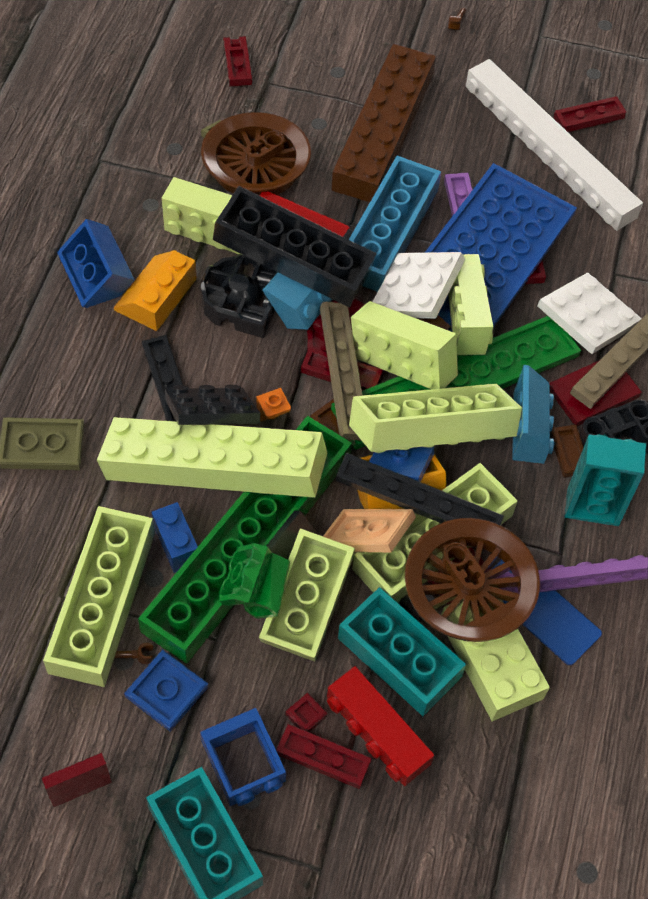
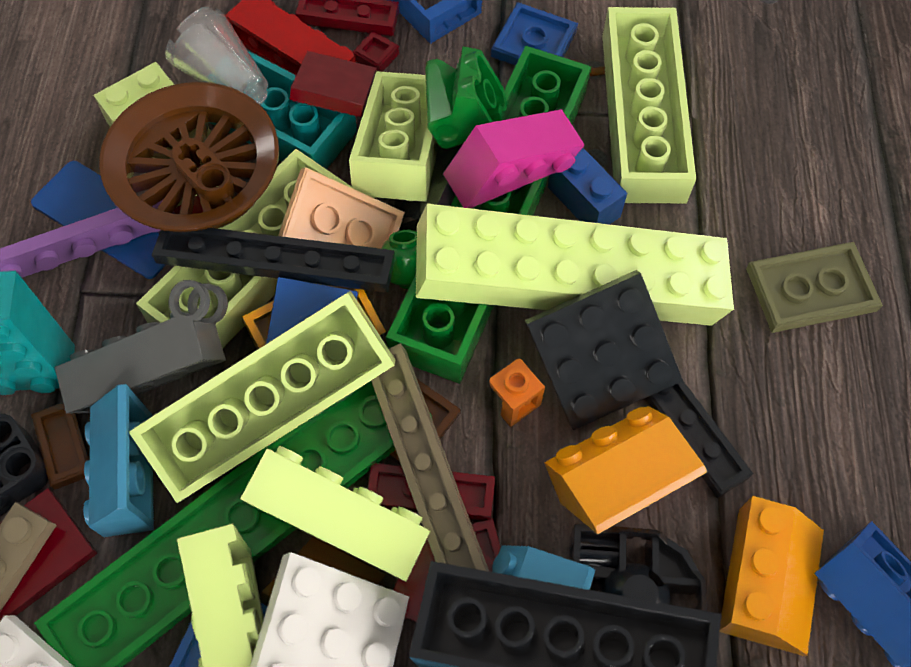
camera: 170 degrees right, 5 degrees up
(223, 344) = (623, 468): none -> light orange slope
(228, 525) = (511, 155): none -> dark pink wedge
(333, 512) = (405, 248): none -> green head
(352, 643) = (333, 84): none -> dark red tile
(444, 664) = (215, 54): none -> clear cone
(512, 461) = (150, 356): none -> dark grey hinge

